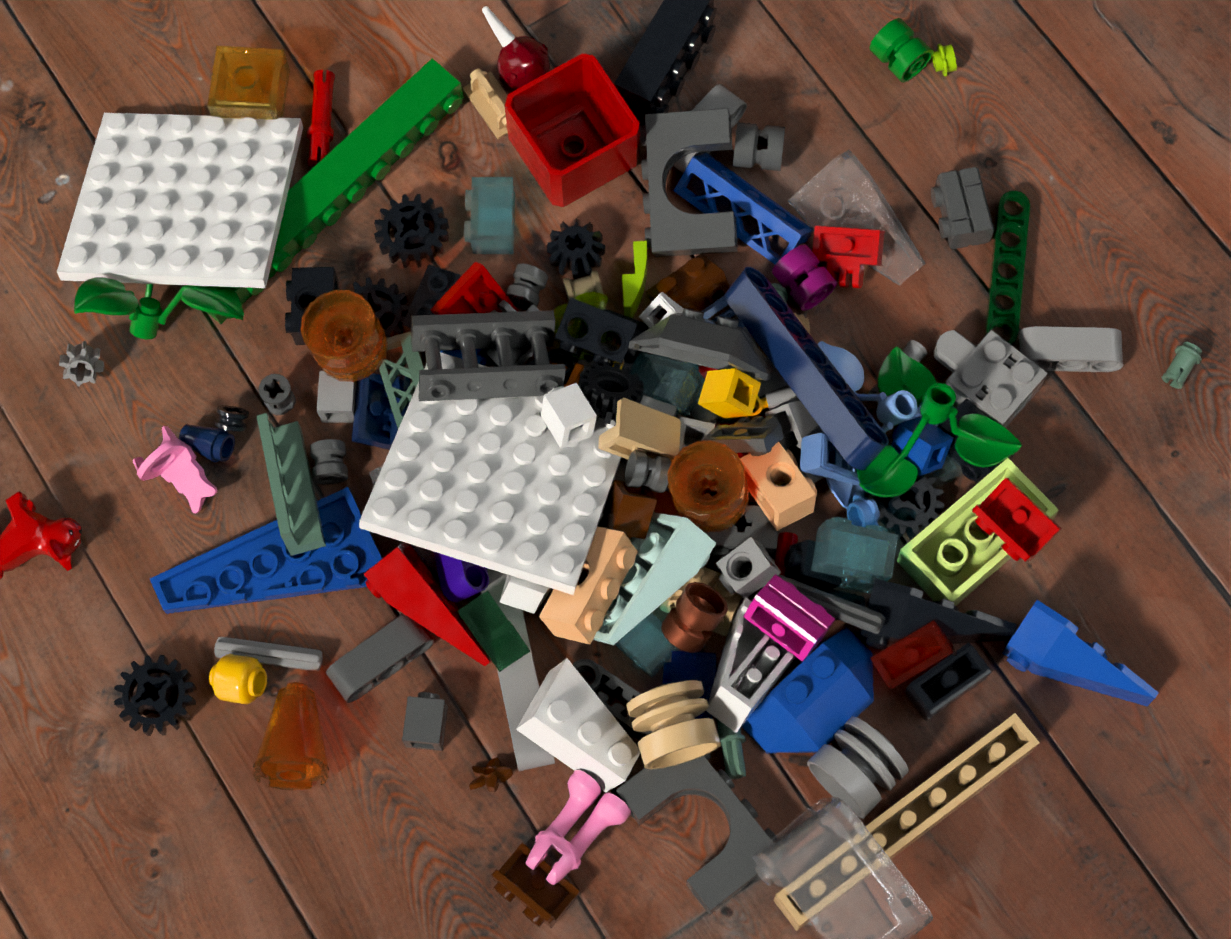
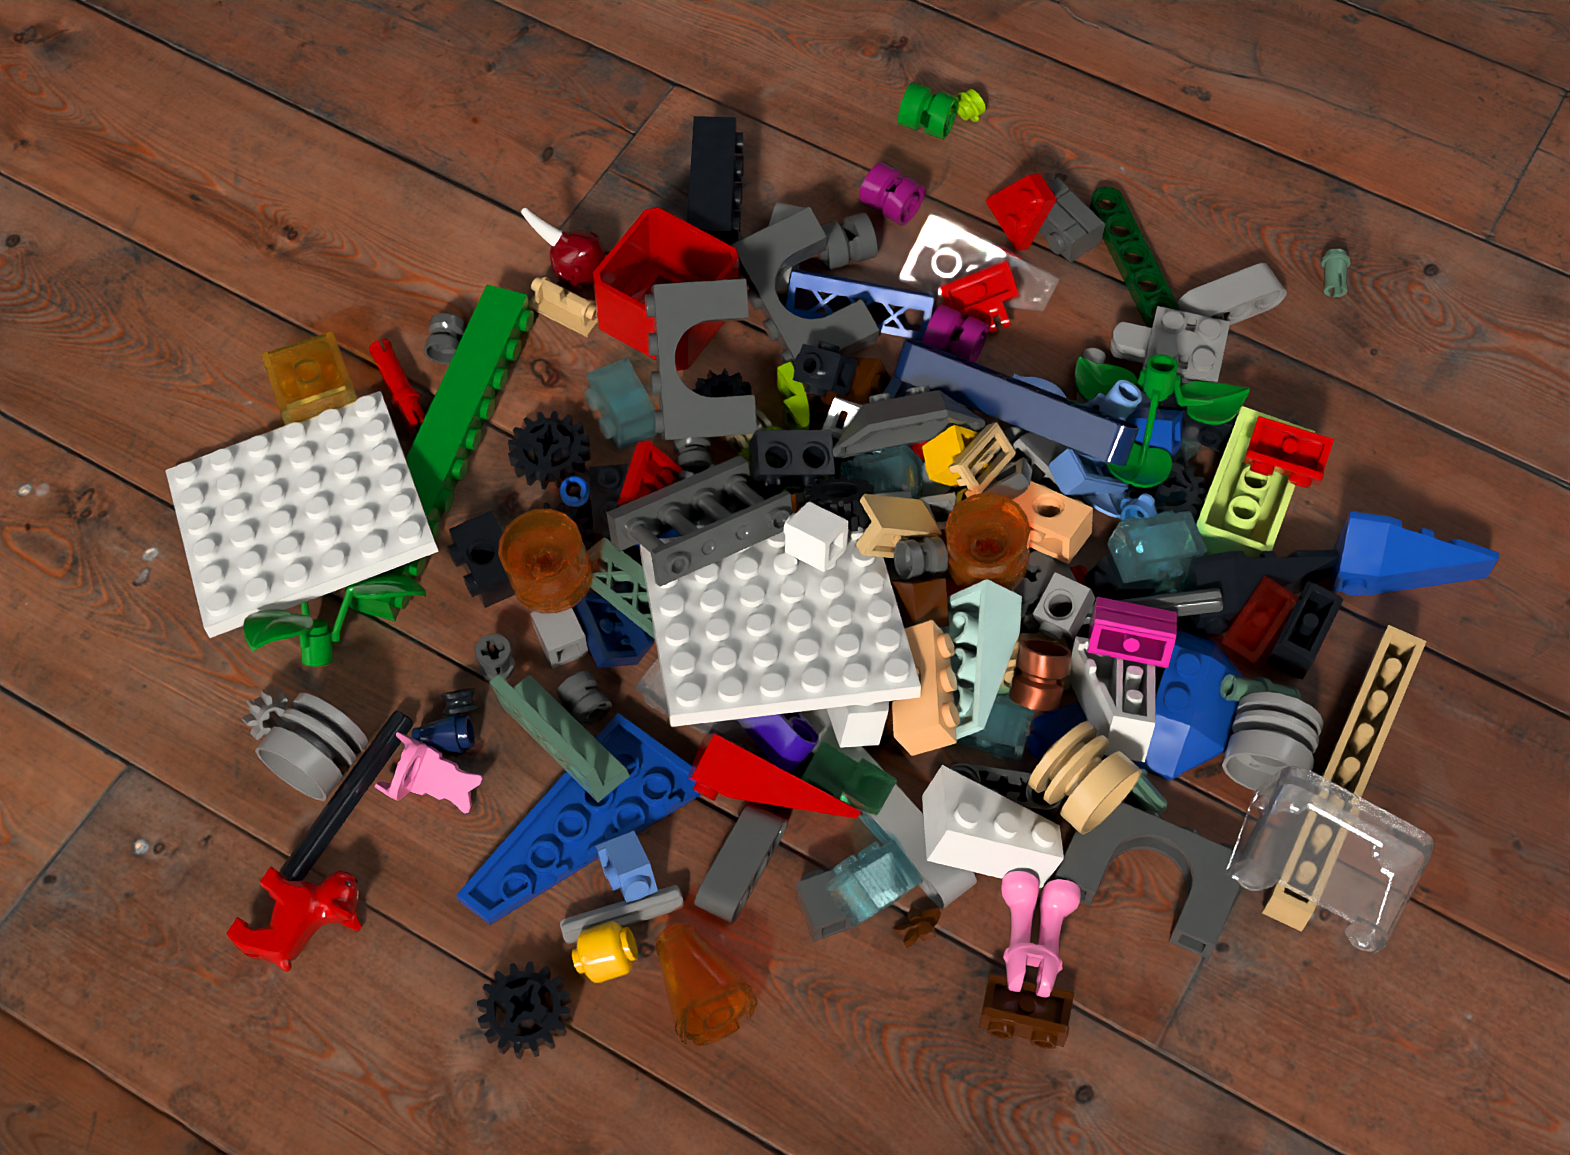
camera: 30 degrees left, 10 degrees down
(97, 406) = (316, 740): none -> light grey wheel
(109, 458) = (346, 798): none -> black axle
(288, 619) = (627, 867): none -> medium blue brick
(378, 90) = (445, 337): none -> dark grey wheel
(405, 280) = (576, 482): none -> blue pin
(466, 726) = (873, 881): none -> clear light blue brick
(524, 250) = (675, 310): none -> dark grey arch
(666, 263) = (824, 369): none -> black brick
(719, 418) = (967, 473): none -> tan tile
(823, 115) = (895, 195): none -> magenta wheel
(878, 717) = (1237, 687): none -> sand green pin
(928, 184) = (1022, 209): none -> red wing

